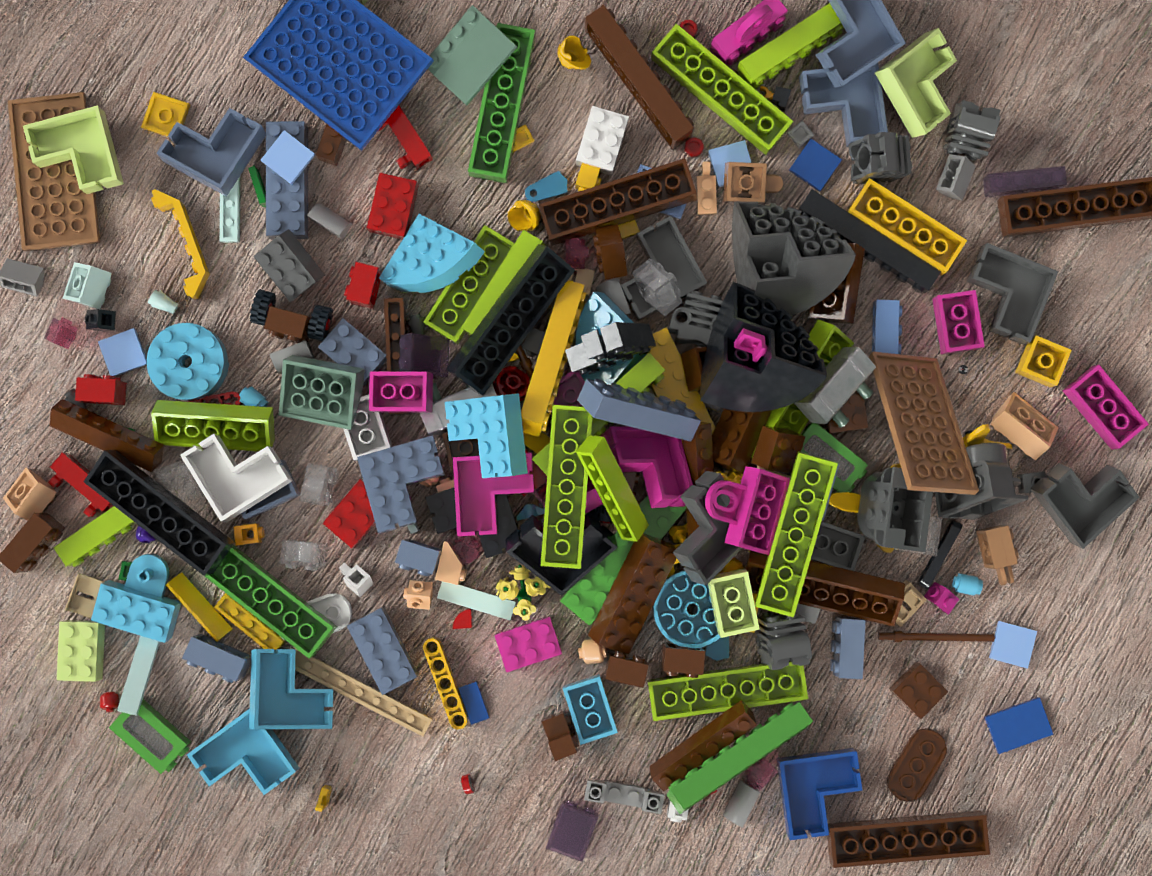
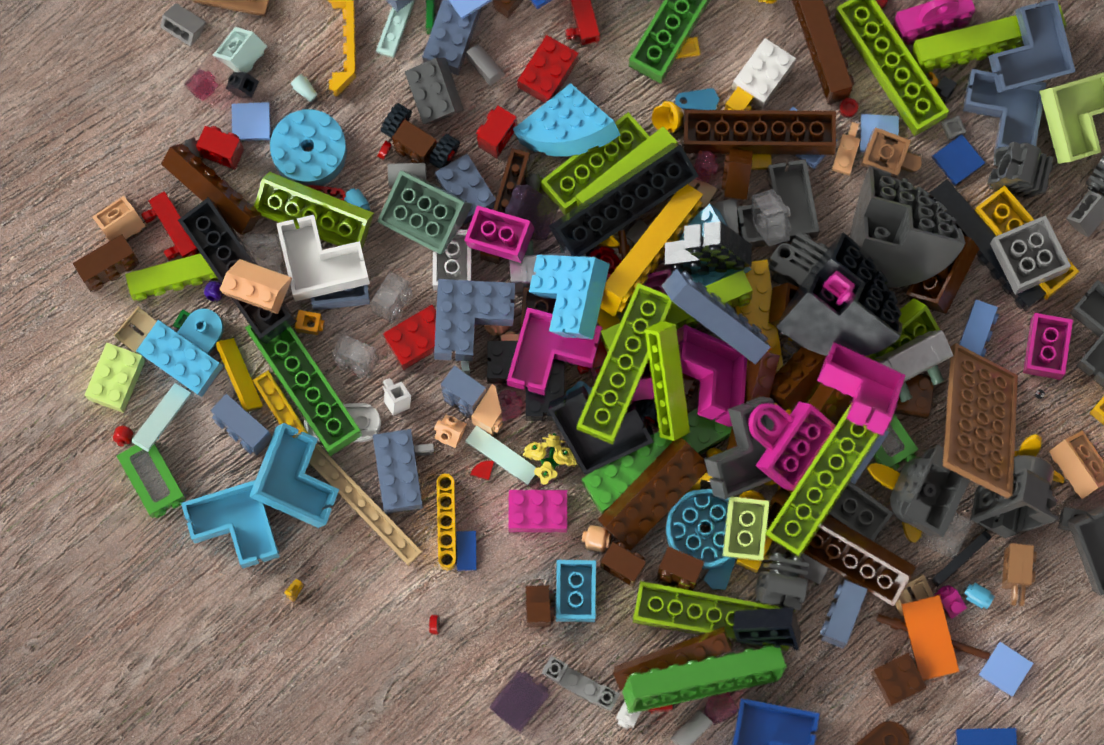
camera: 20 degrees right, 10 degrees down
(181, 526) = (256, 285): none -> light nougat slope
(262, 338) = (384, 150): none -> red tile
(401, 620) = (424, 449): none -> light grey tile
(783, 689) = (766, 625): none -> black wedge
(812, 429) = (871, 385): none -> dark pink piece
(918, 241) = (1030, 254): none -> light grey slope
(934, 640) = (930, 637): none -> orange tile

